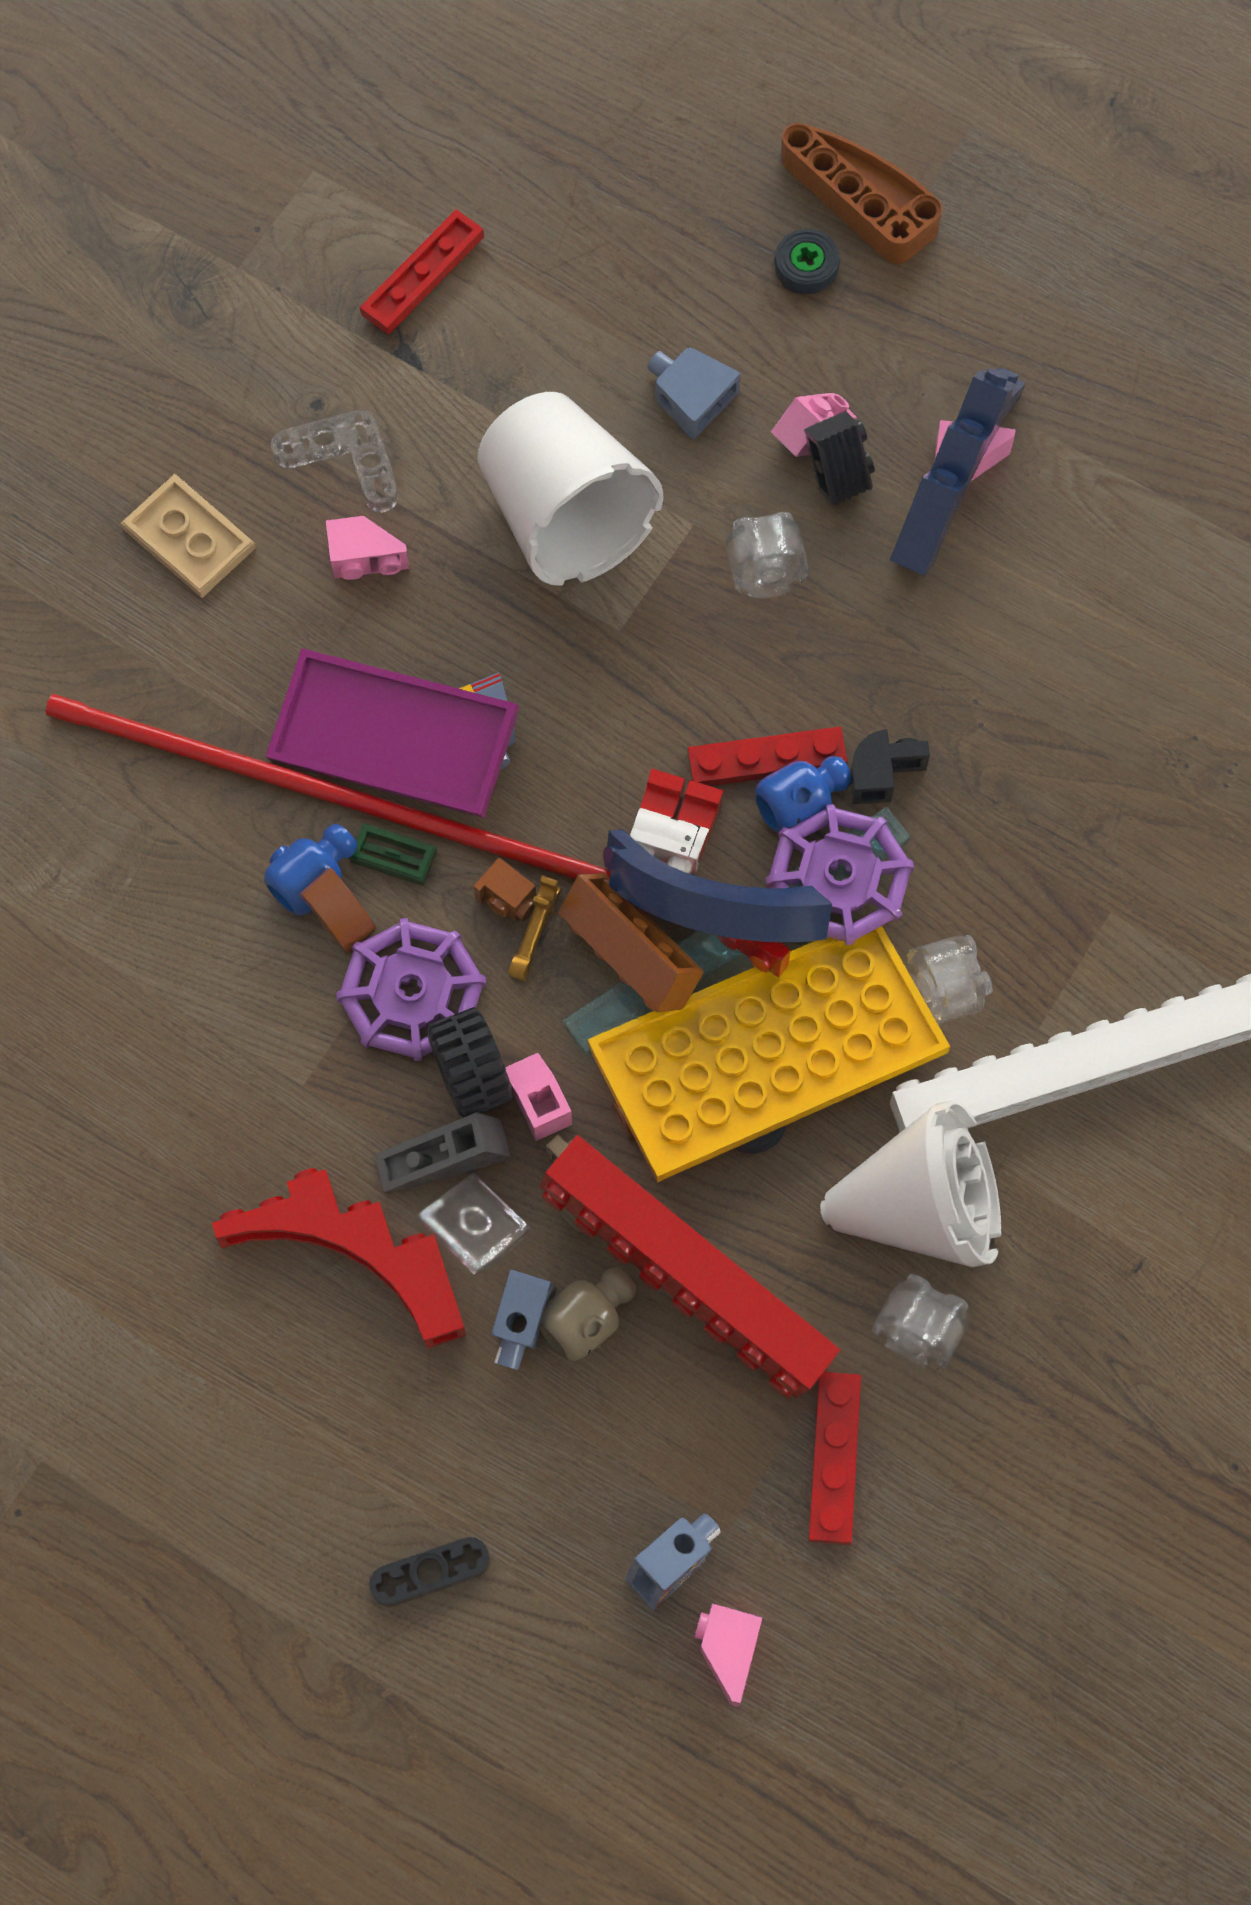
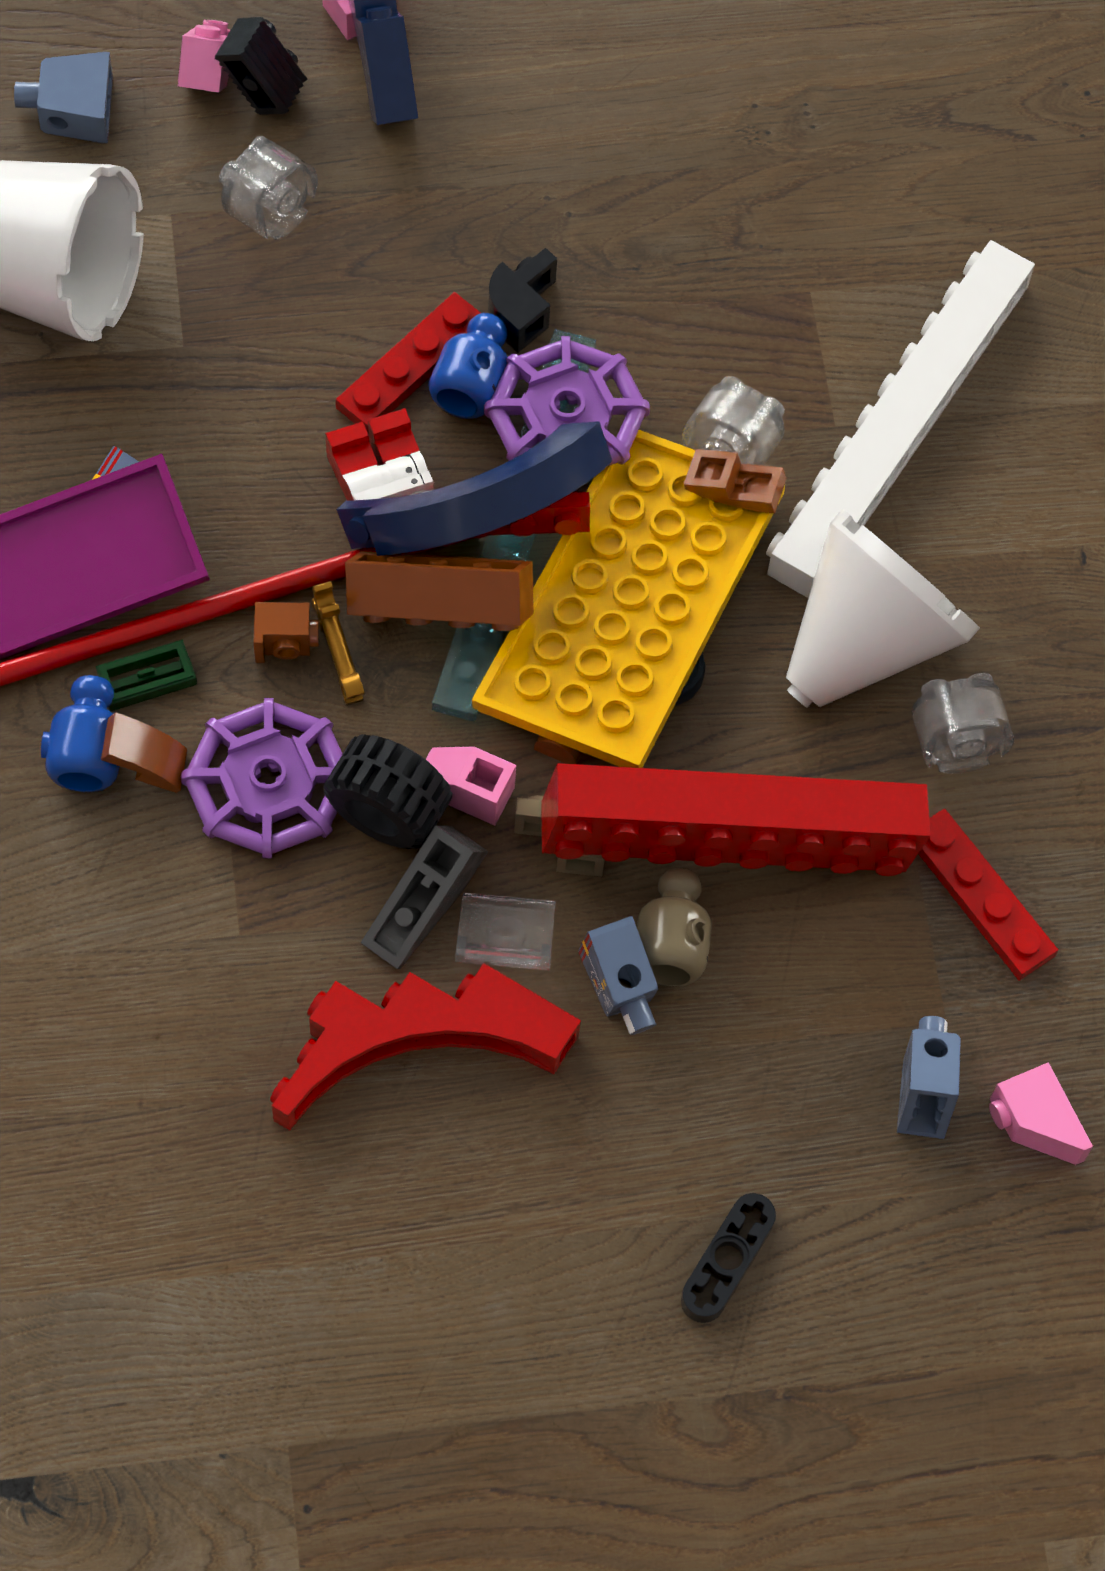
camera: 45 degrees left, 5 degrees down
(911, 1019) = (727, 481): none -> dark orange slope

